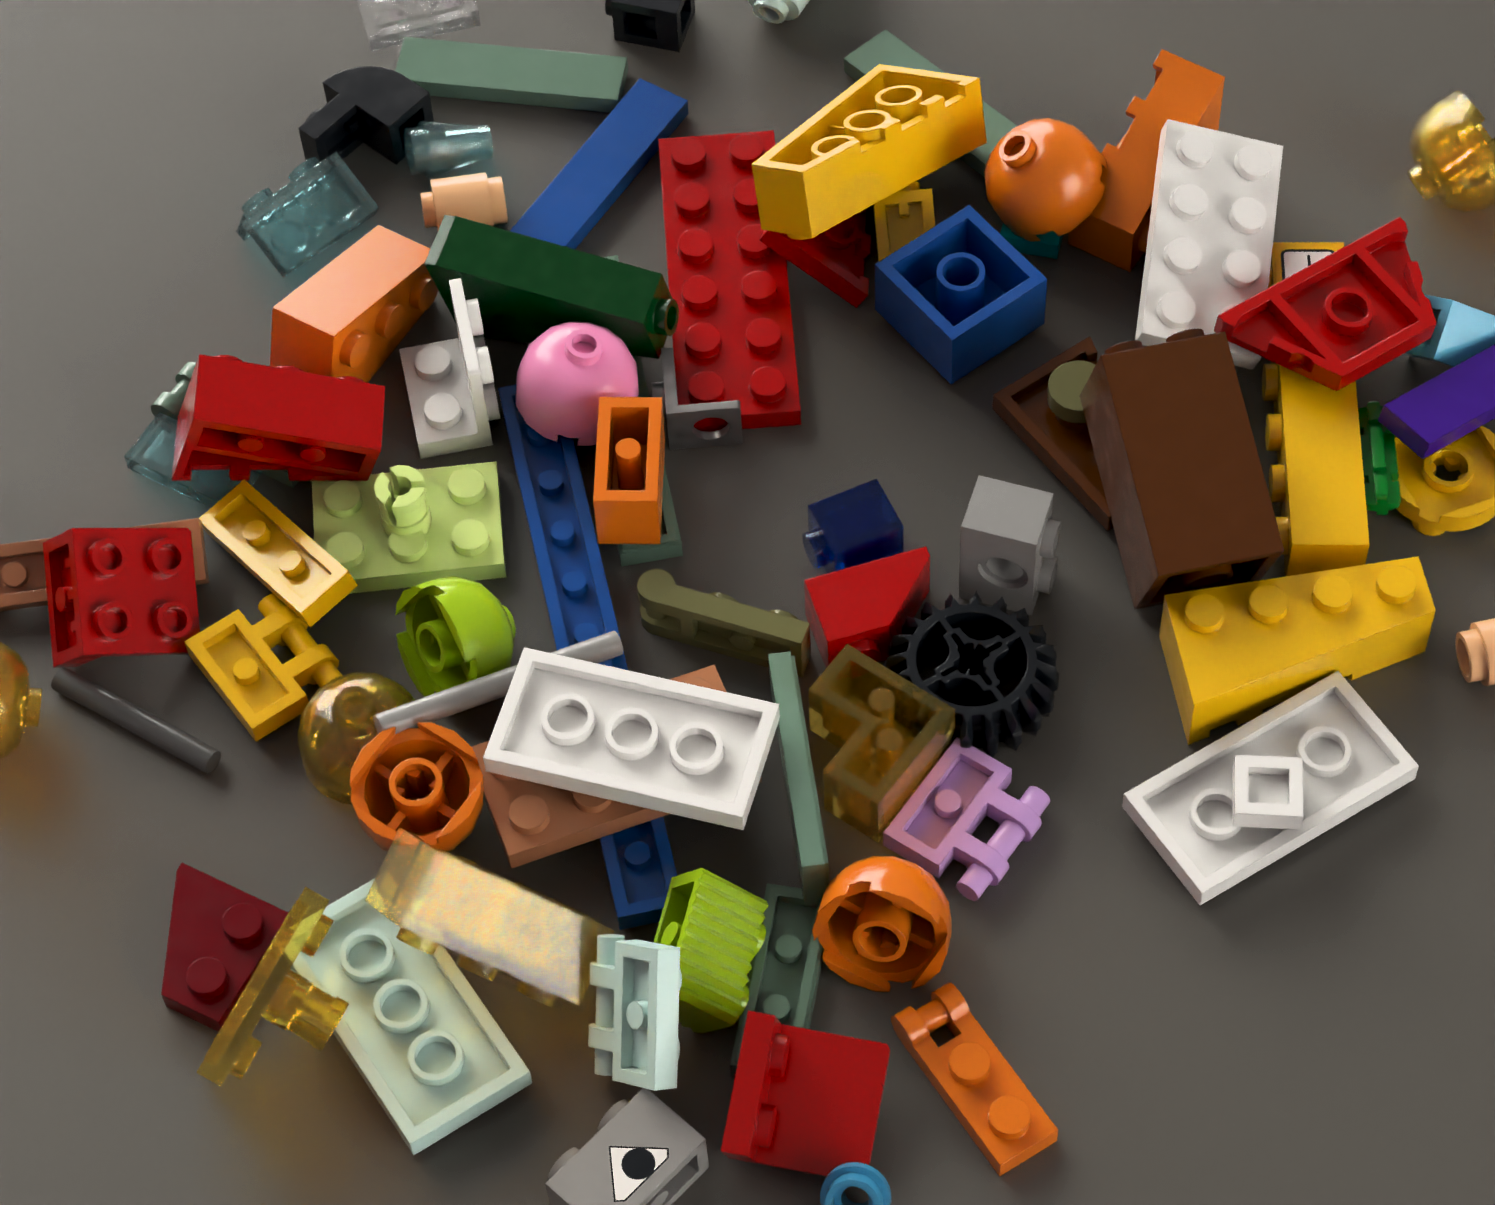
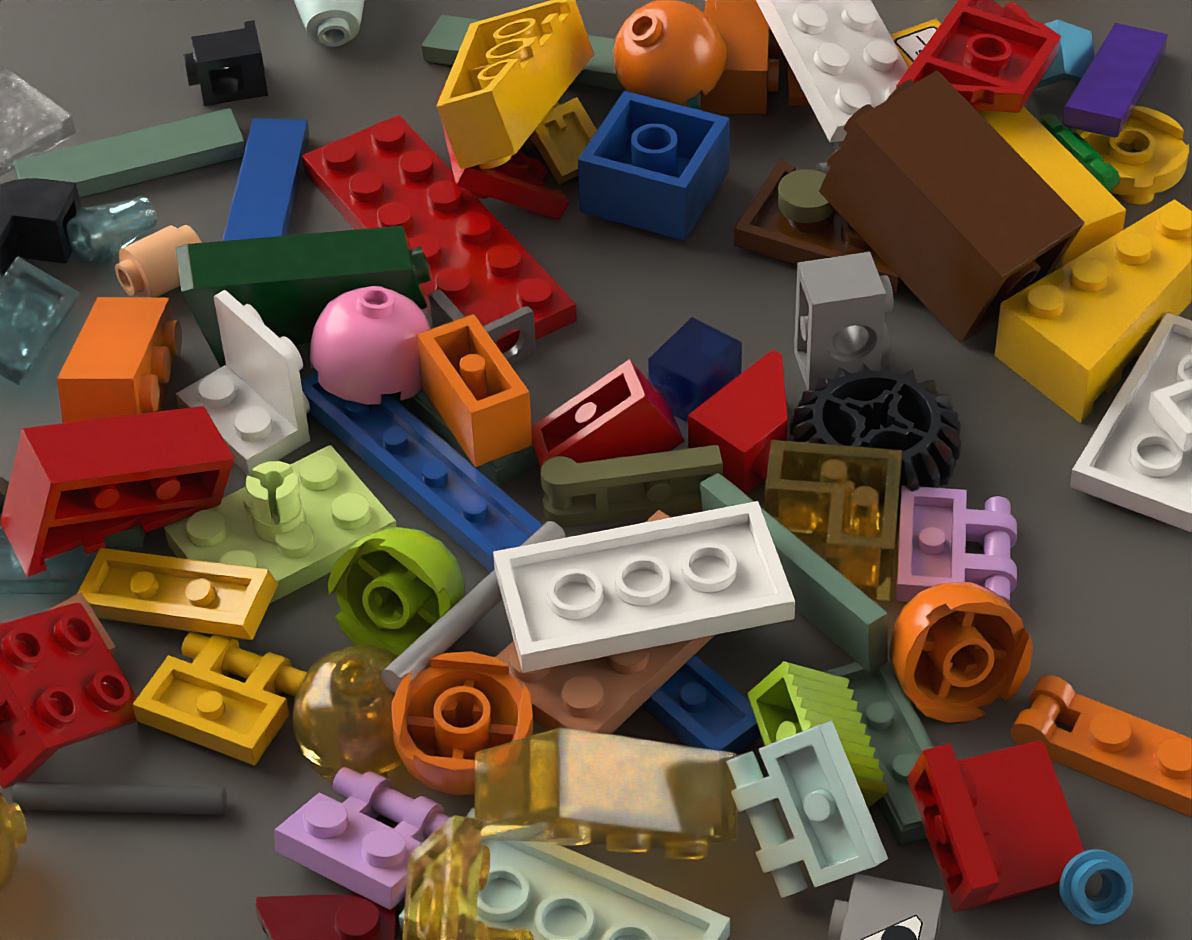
camera: 30 degrees left, 10 degrees down
(278, 854) = (351, 845): none -> lavender plate
(737, 554) = (608, 421): none -> red slope

